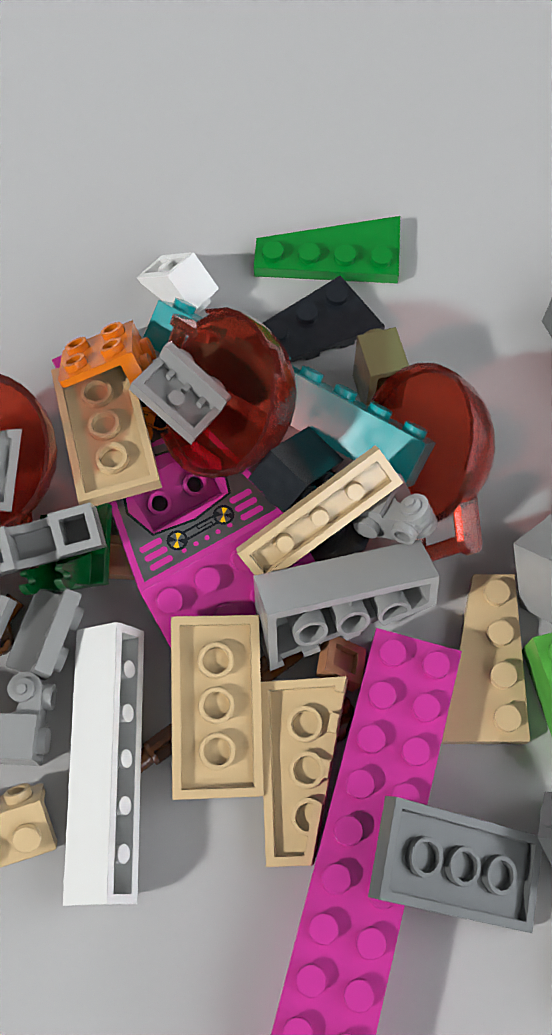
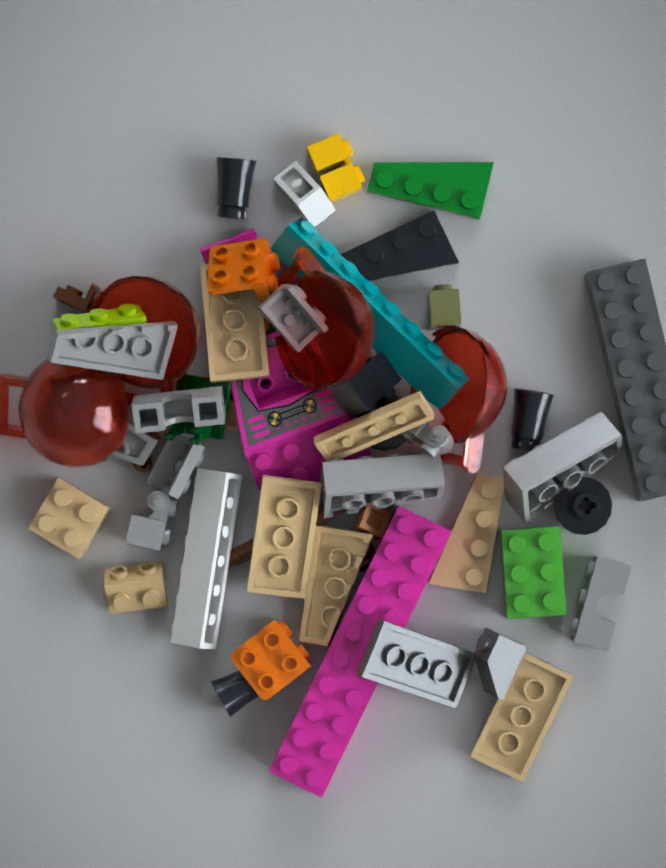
camera: 10 degrees right, 20 degrees up
(87, 283) = (234, 186): none -> black plant
(190, 959) = (234, 692): none -> black plant
(213, 245) = (331, 154): none -> yellow piece
(225, 904) = (270, 659): none -> orange bracket
(525, 484) = (529, 417): none -> black plant

